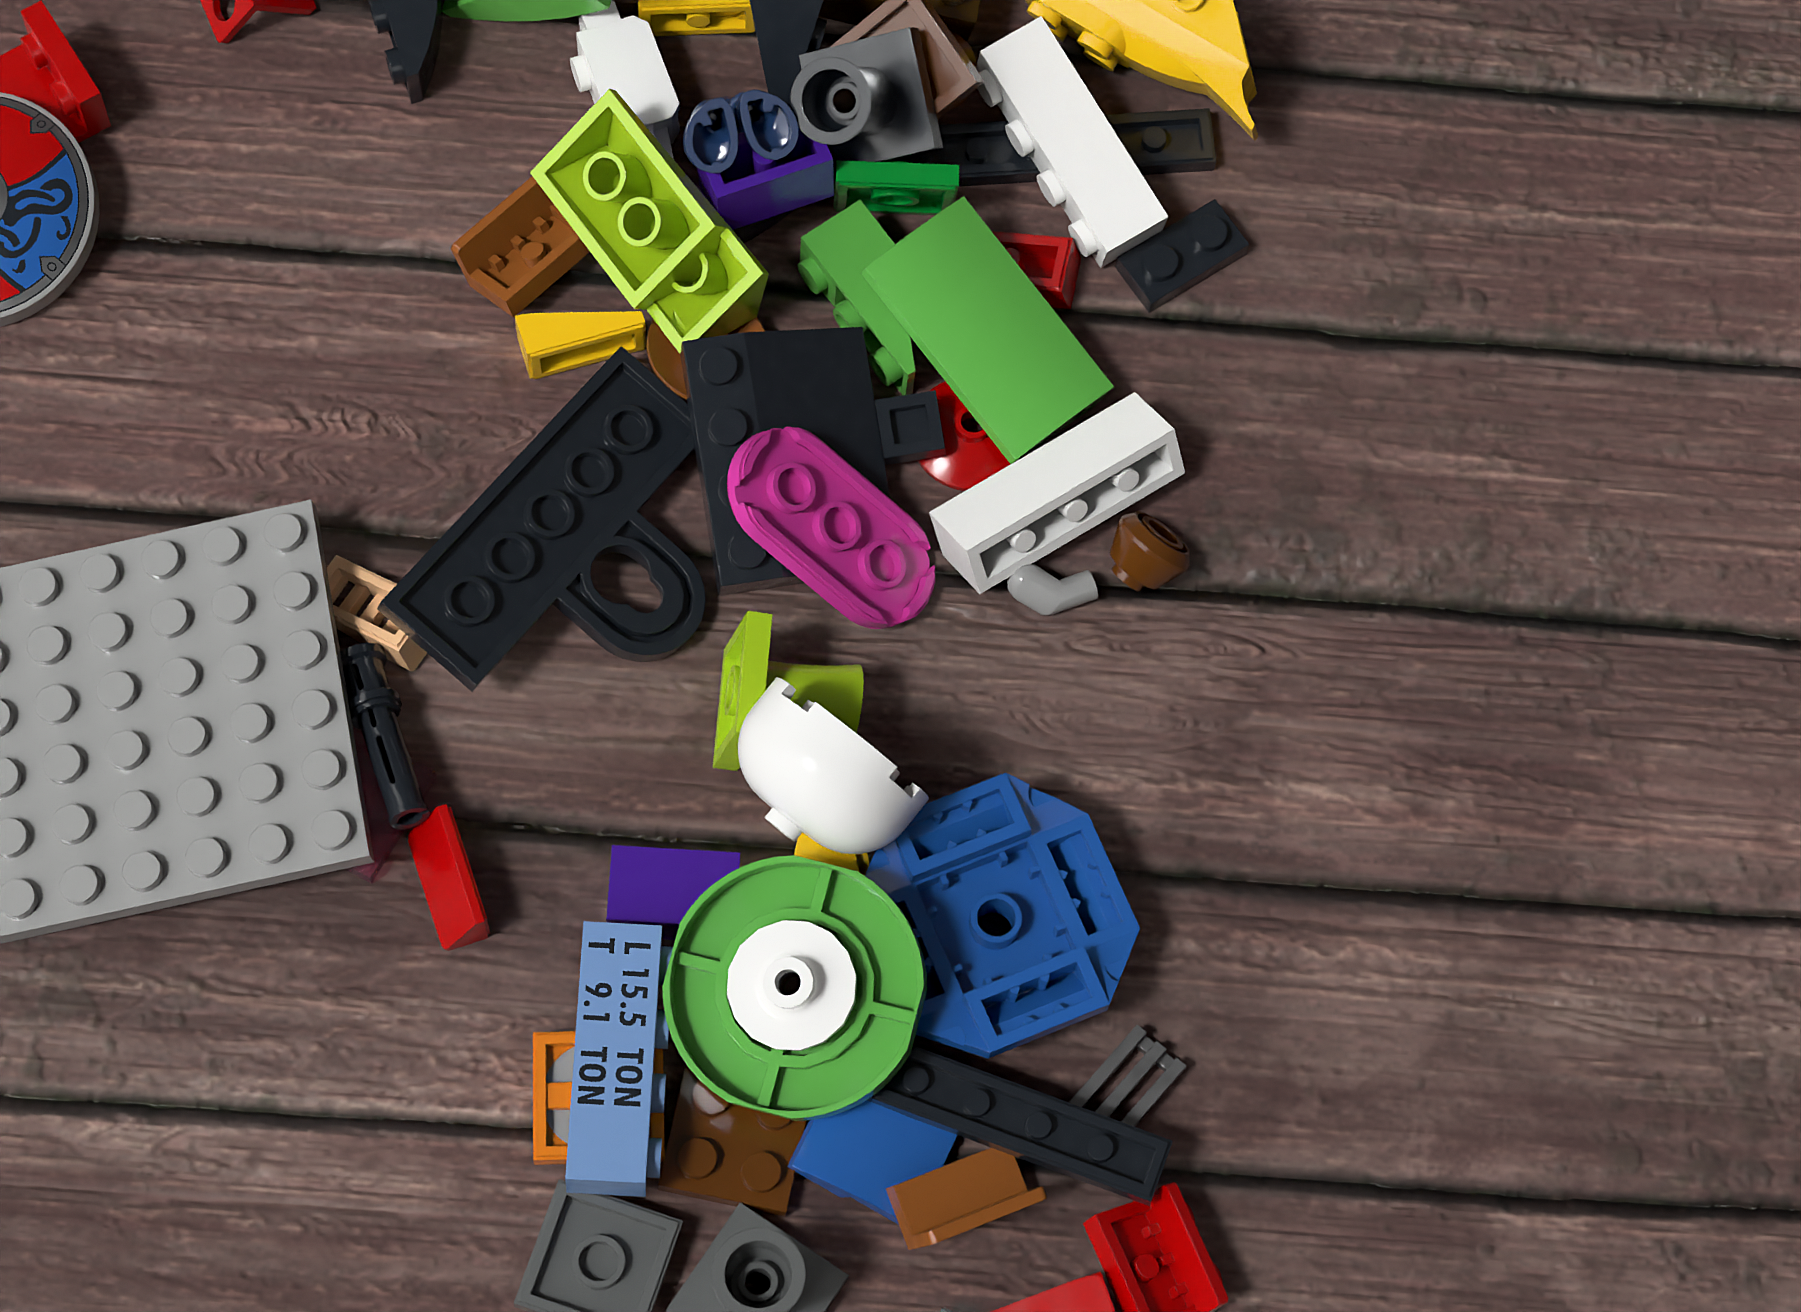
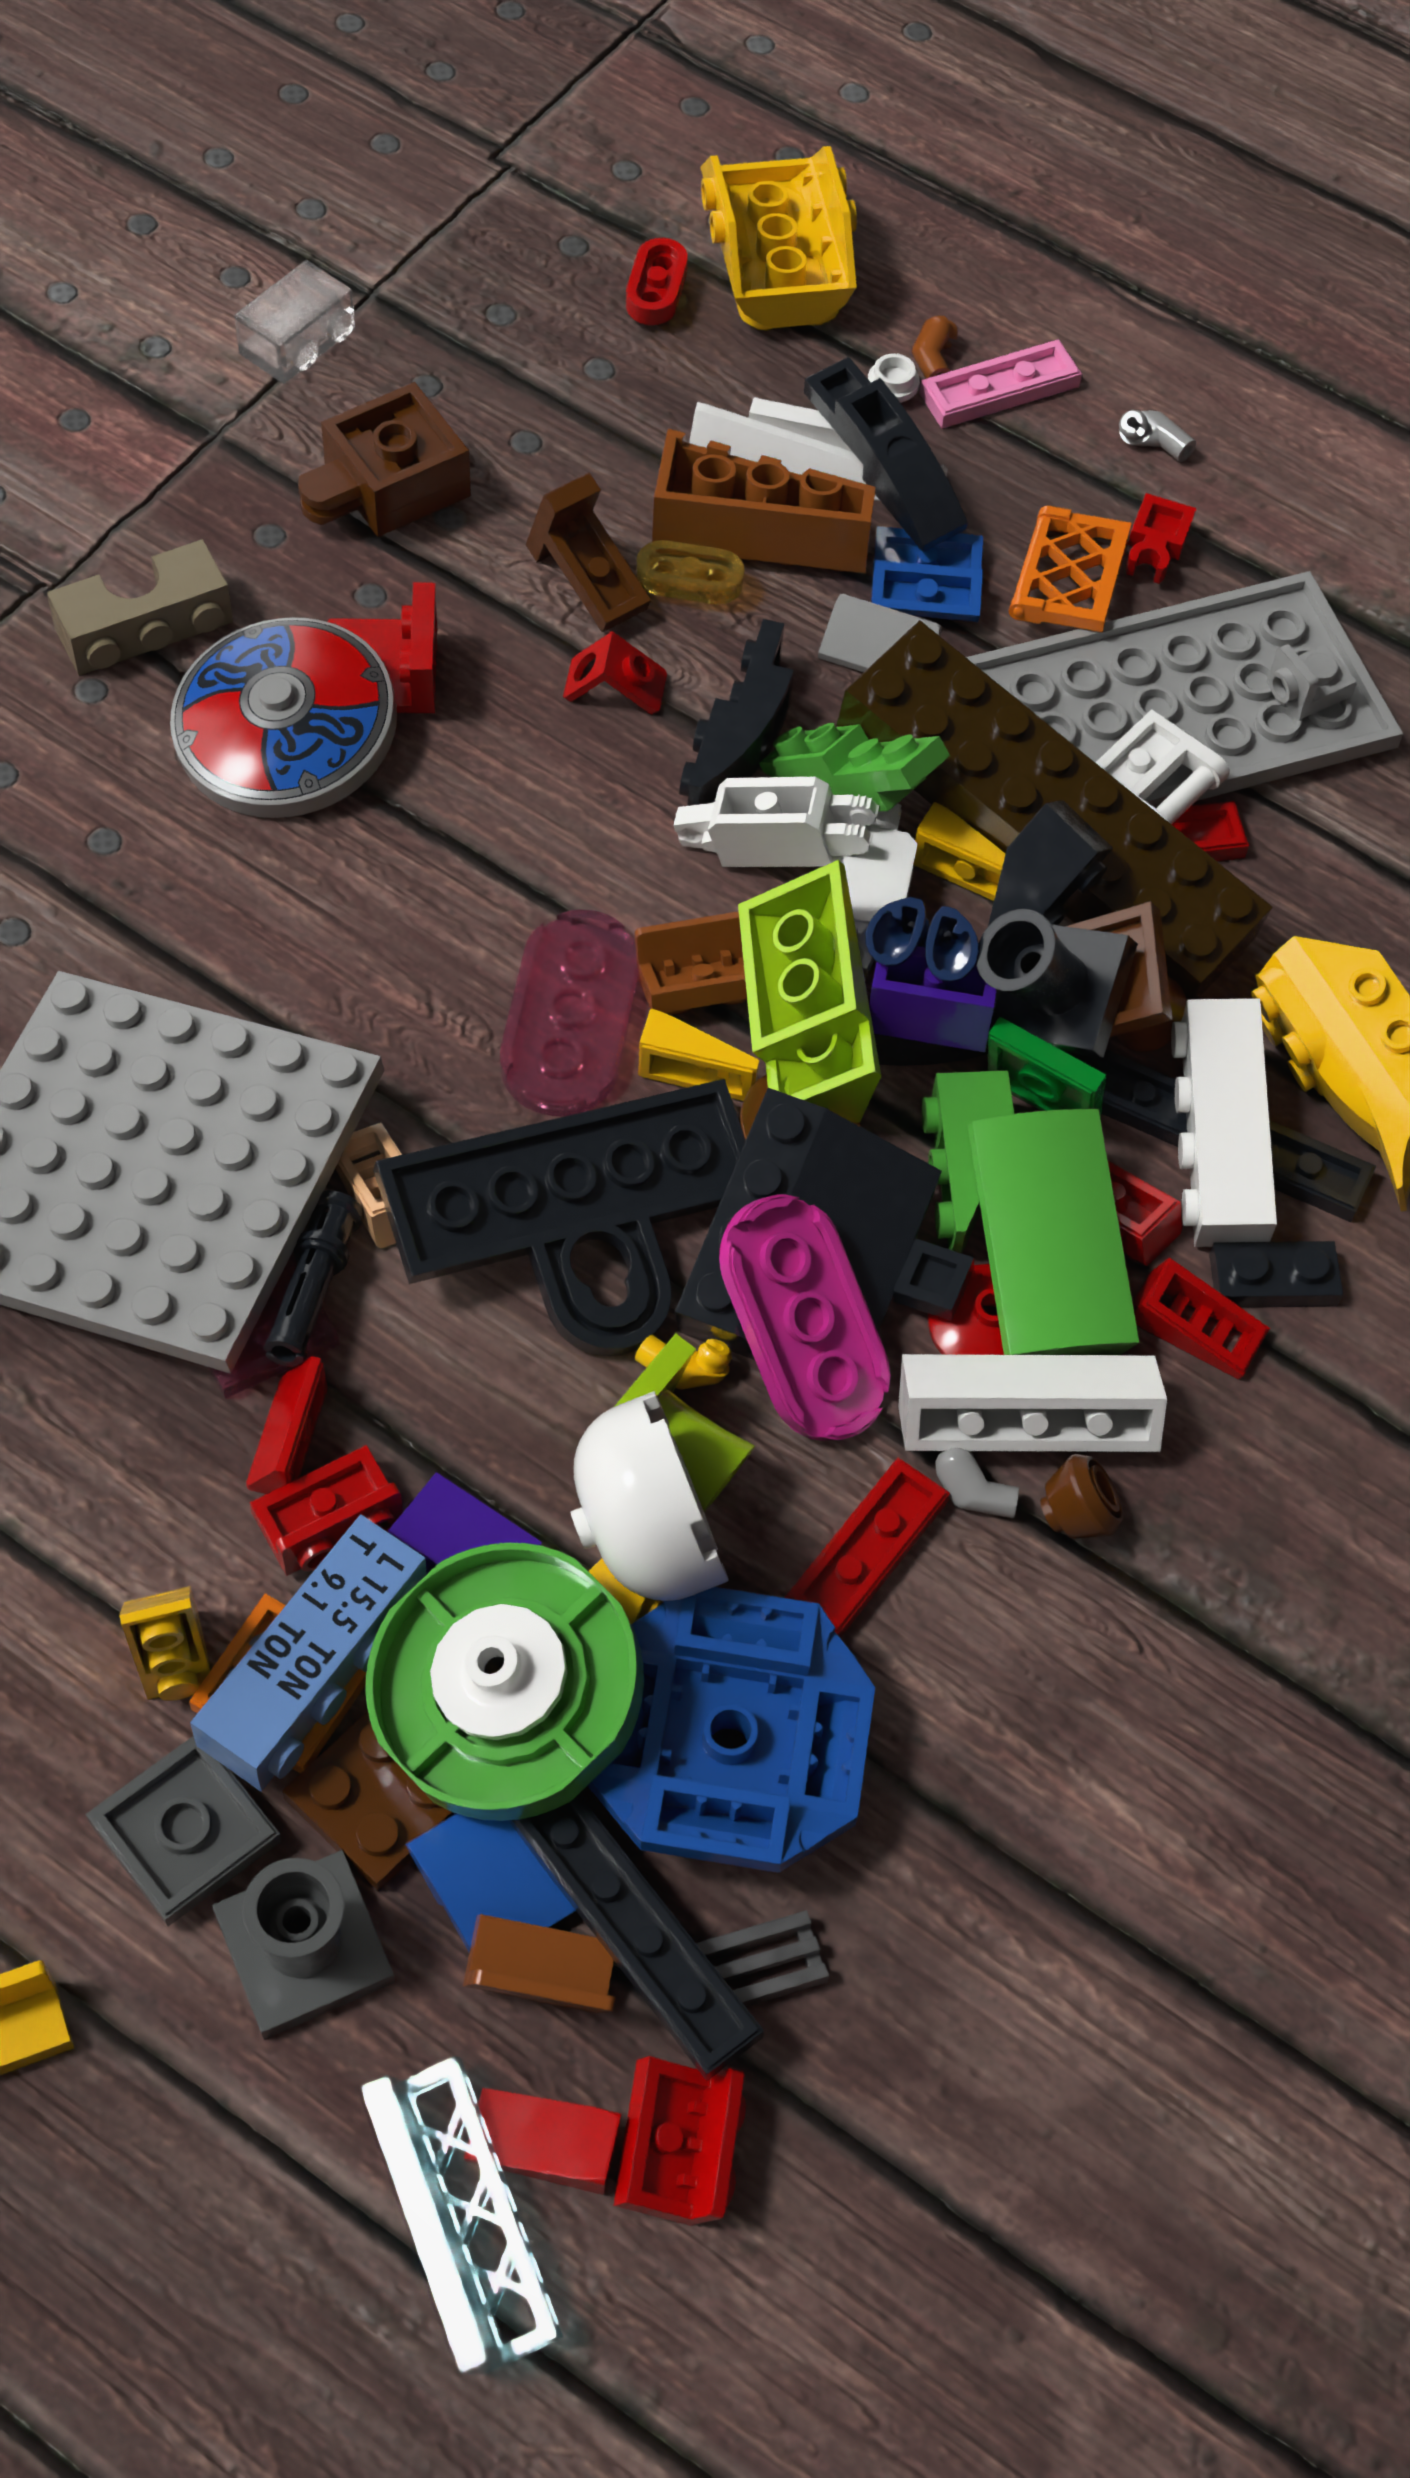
camera: 35 degrees right, 10 degrees down
(433, 354) = (570, 1013): none -> clear pink tile
(485, 1120) = (166, 1643): none -> yellow slope
(510, 70) = (778, 823): none -> white hinge
(534, 930) = (317, 1509): none -> red bracket
(719, 629) = (705, 1368): none -> yellow arm
(996, 692) = (871, 1544): none -> red tile
(1142, 354) = (1188, 1335): none -> red slope

